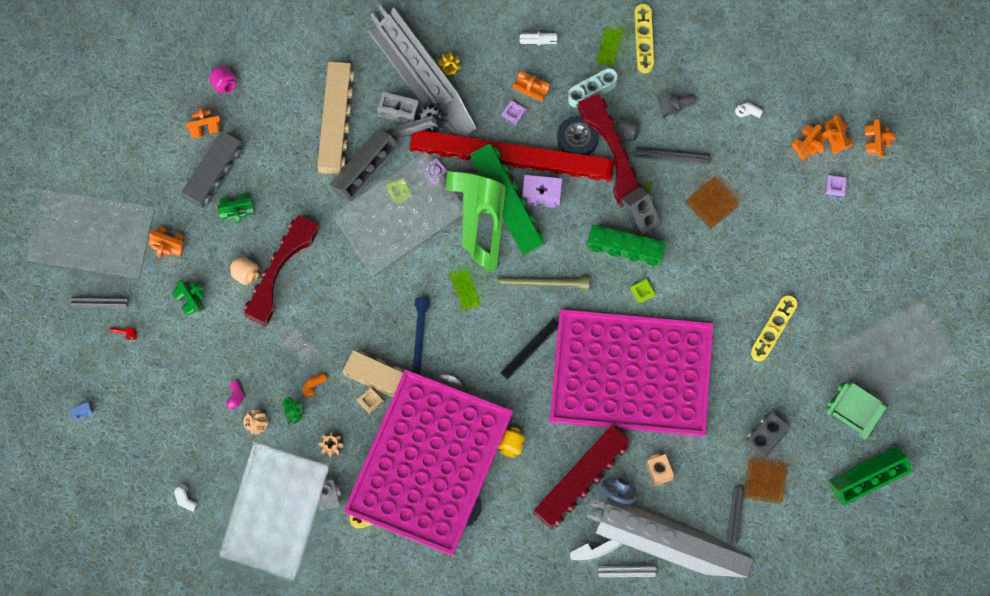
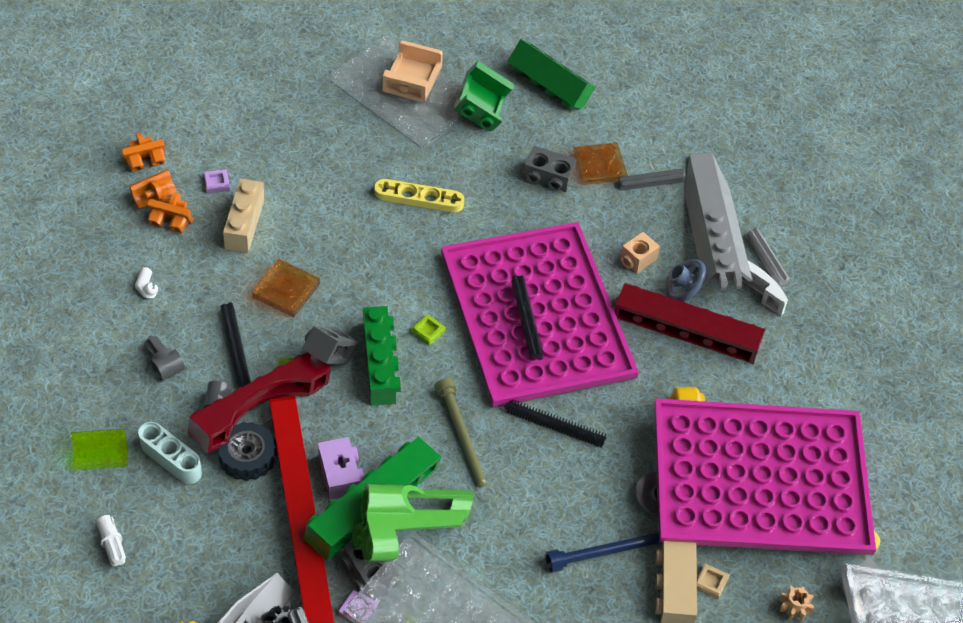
camera: 115 degrees left, 20 degrees down
(464, 290) = (514, 518): clear neon green panel -> none
(514, 112) = (234, 539): lavender tile -> none
(531, 86) = (191, 523): orange hips -> none
(622, 357) = (526, 316): none -> black axle
(644, 38) = (74, 415): light yellow beam -> none
(789, 191) = (243, 215): none -> tan brick
(901, 361) = (413, 71): none -> light nougat panel

